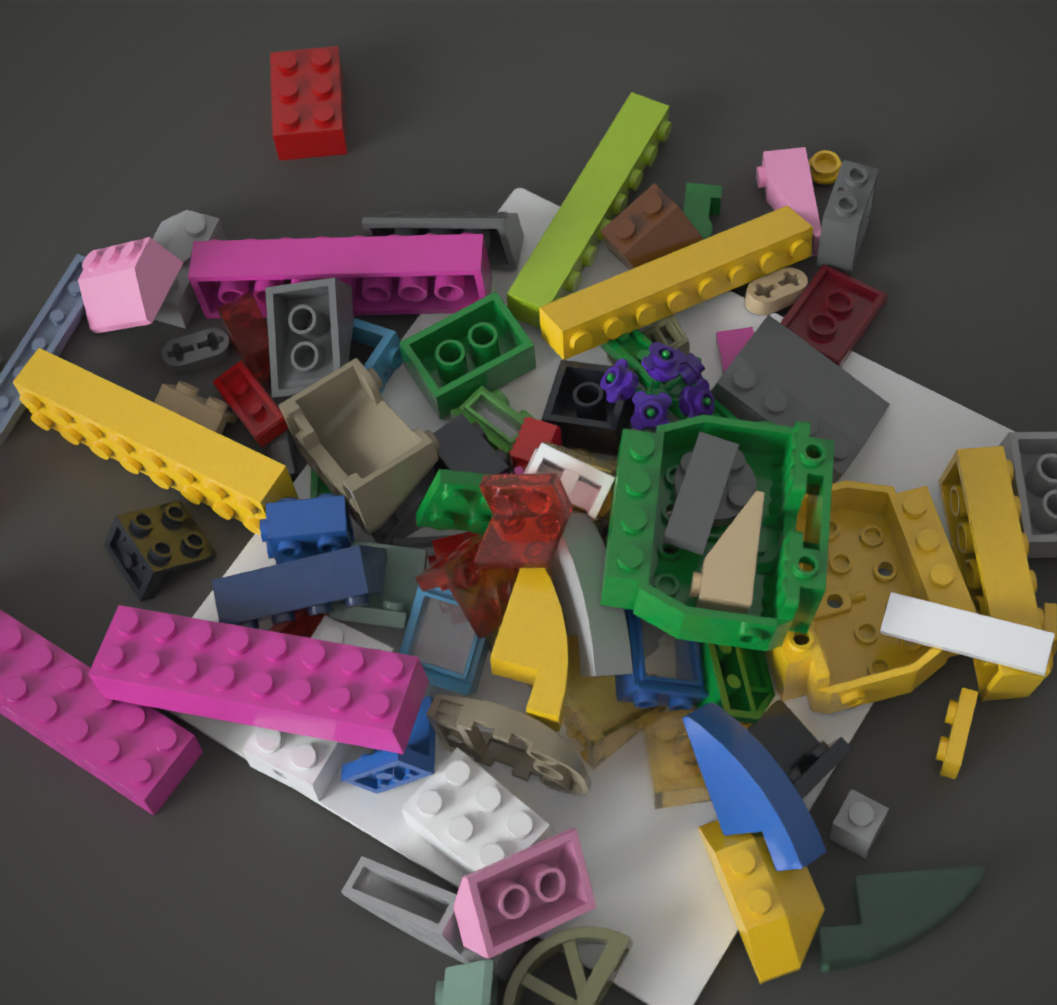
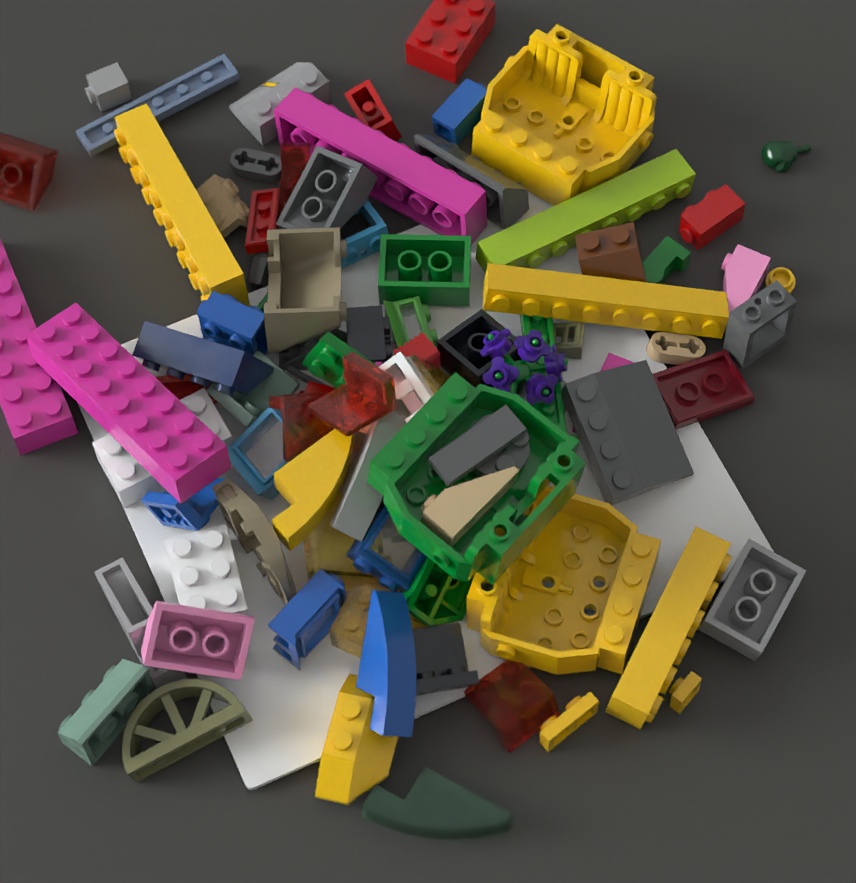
camera: 30 degrees right, 0 degrees up
(126, 284) = (235, 92): bright pink slope -> none
(155, 543) = (141, 279): black bracket -> none
(277, 219) = (371, 110): none -> red brick
(381, 174) = (460, 112): none -> blue brick
(497, 119) = (564, 116): none -> yellow piece
(621, 793) = (308, 617): none -> blue window
(711, 142) = (711, 216): none -> red brick
(731, 44) = (781, 154): none -> dark green piece
(858, 823) = (455, 737): light grey brick -> none
(889, 747) = (513, 702): none -> clear red bracket
(967, 633) = (607, 653): white tile -> none

